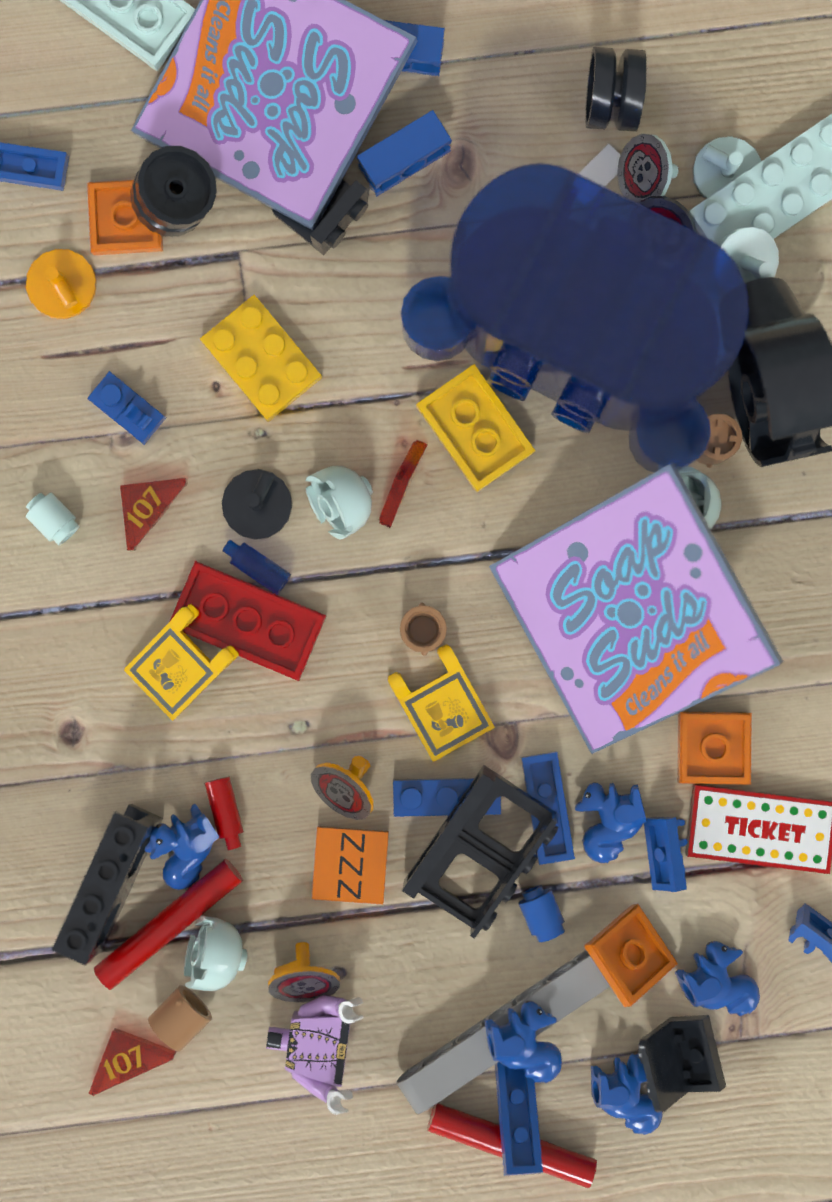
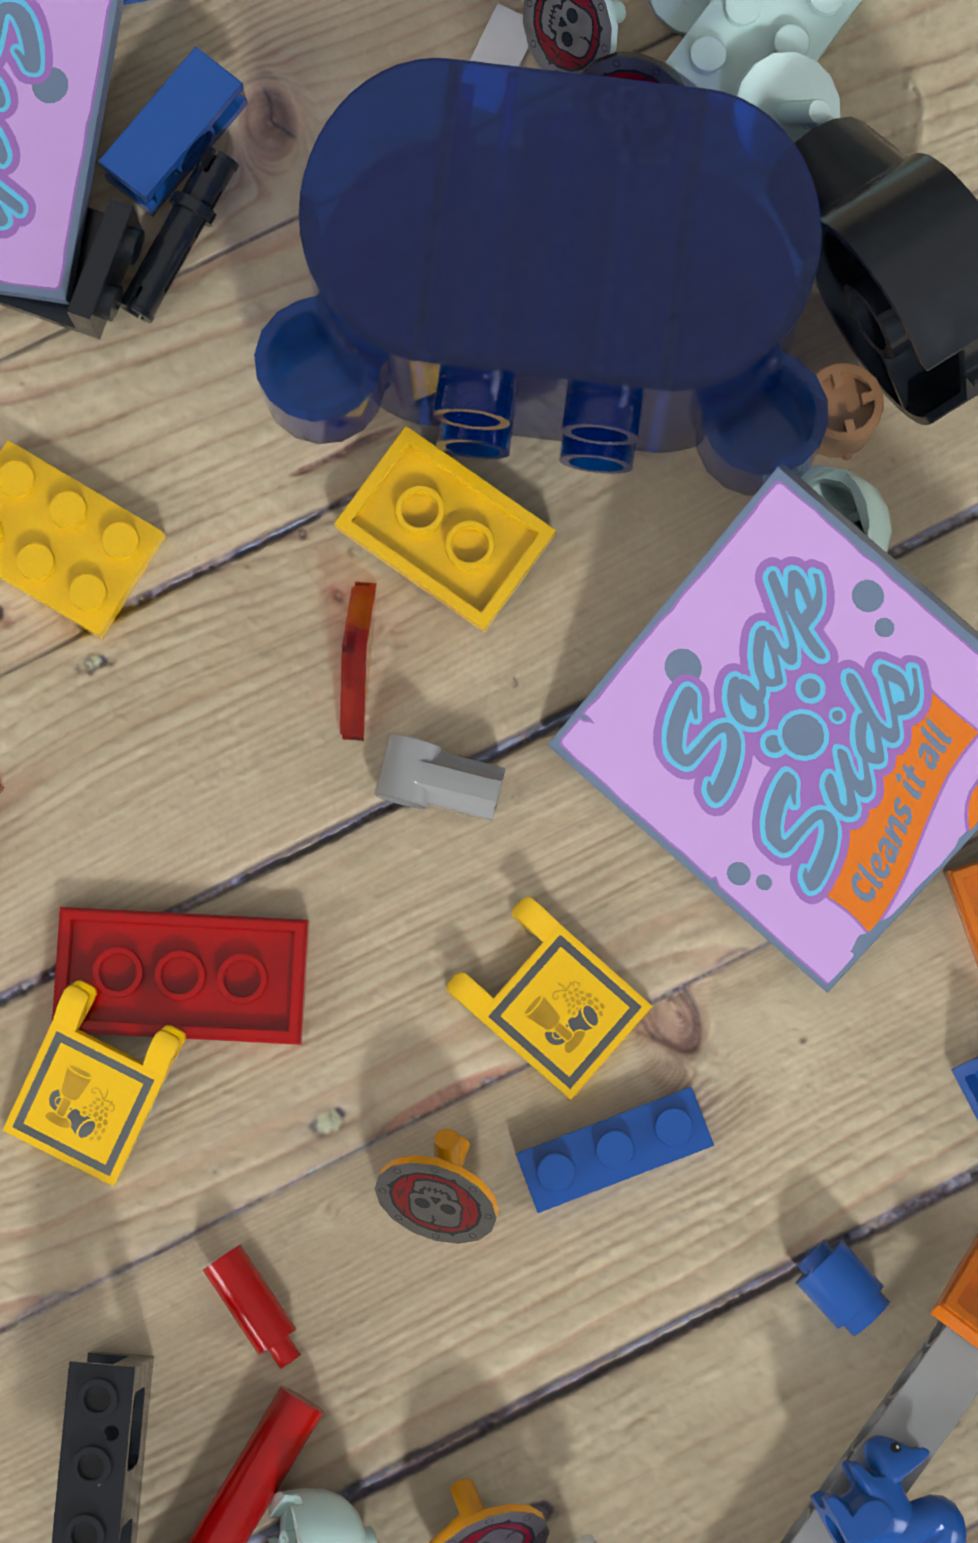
camera: 15 degrees left, 5 degrees down
(190, 845) = (214, 1380): blue animal -> none
(256, 504) = (130, 779): black shield -> none
(257, 566) = (166, 879): clear blue cylinder -> none
(340, 498) = (265, 720): light aqua cylinder -> none
(350, 865) = (494, 1321): orange tile -> none
(385, 213) = (189, 214): none -> black pin
(418, 561) = (423, 775): none -> light grey piece
(423, 629) = (475, 884): medium nougat piece -> none
(462, 835) = (664, 1203): black window -> none
(545, 784) = (787, 1107): blue plate -> none
(619, 816) = (914, 1085): blue animal -> none

